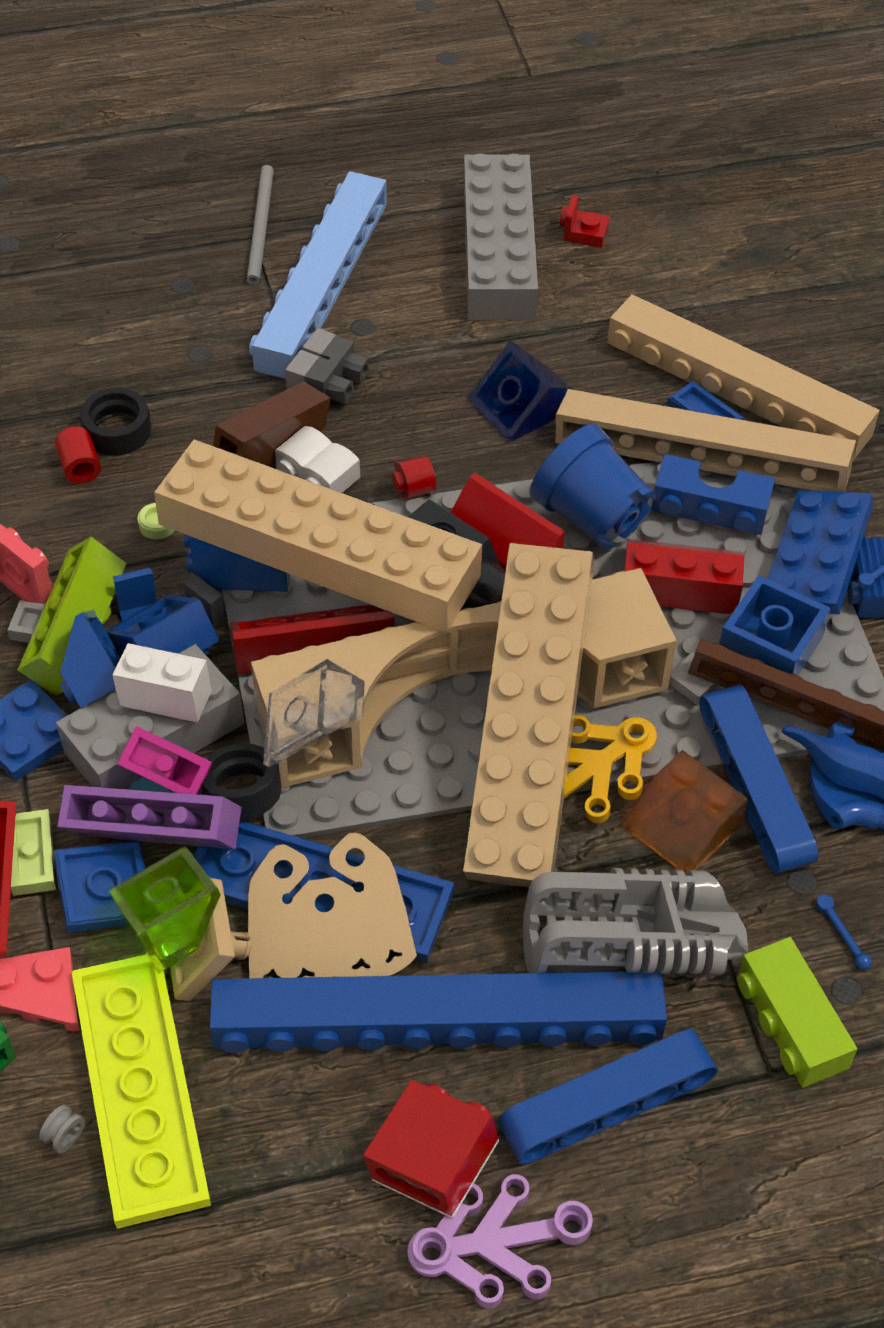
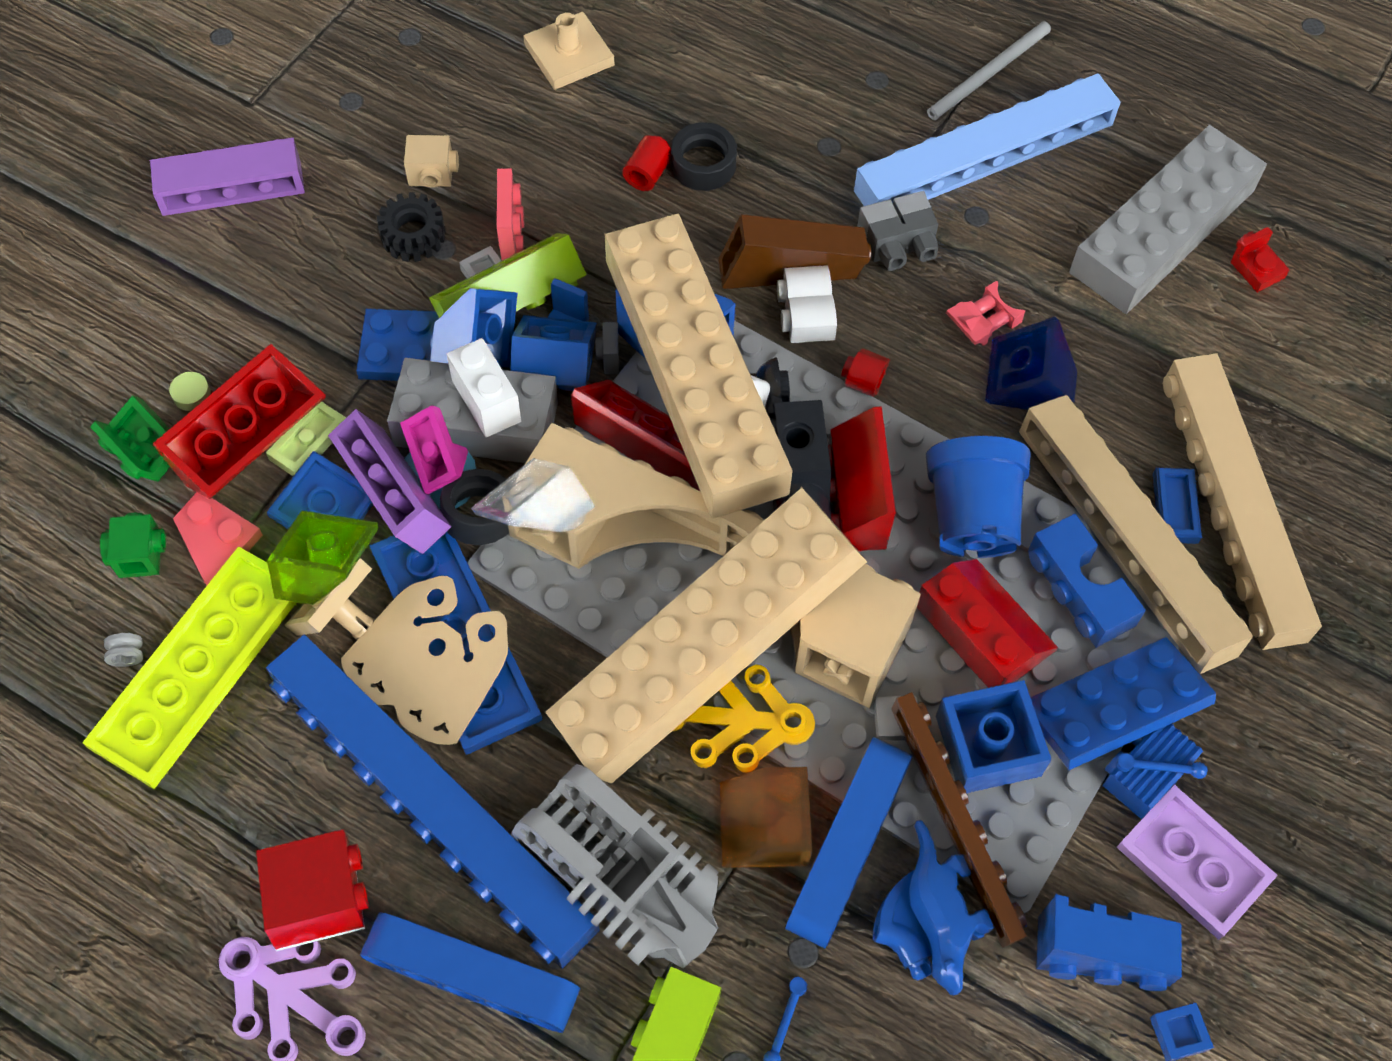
camera: 45 degrees right, 10 degrees up
(449, 395) = (974, 325): none -> coral piece

